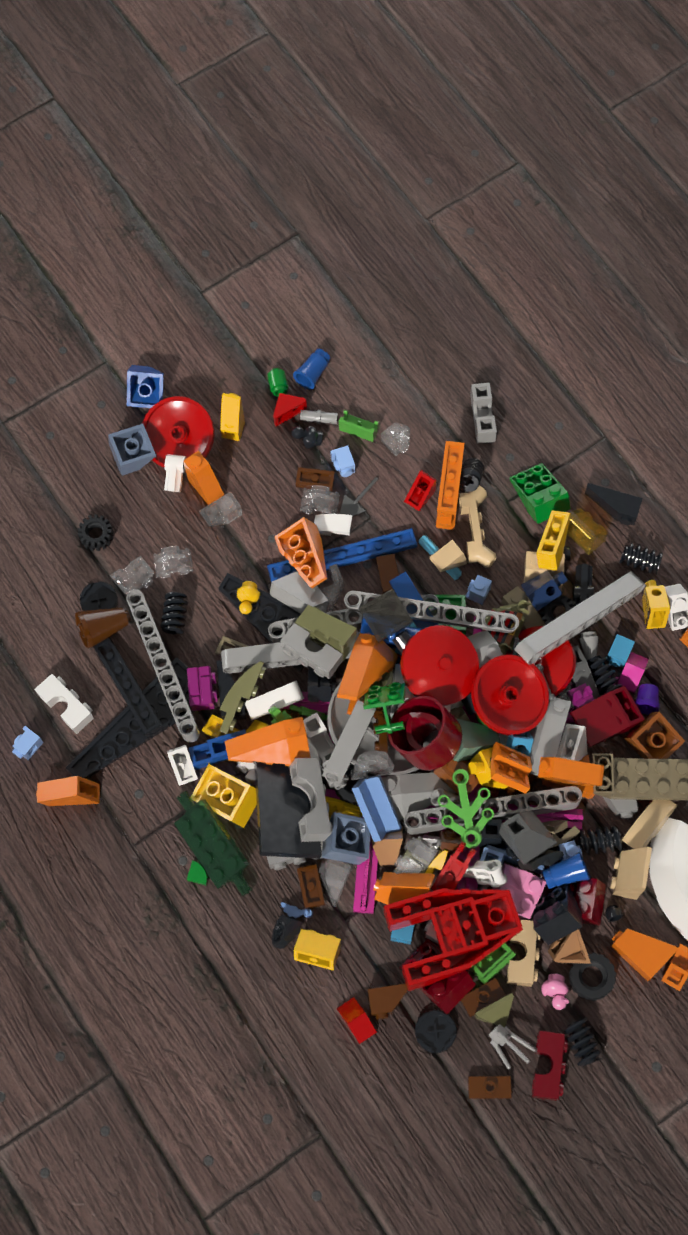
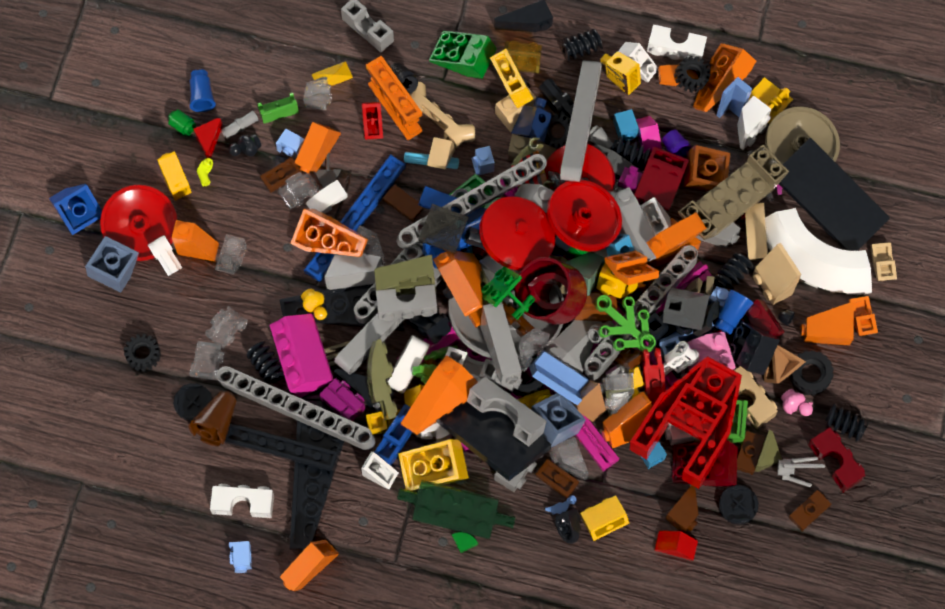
camera: 45 degrees left, 0 degrees up
(203, 627) = (301, 353): none -> dark pink slope
(261, 431) = (203, 171): none -> neon yellow arm
(359, 477) = (316, 147): none -> orange slope
(425, 433) = (335, 74): none -> yellow slope

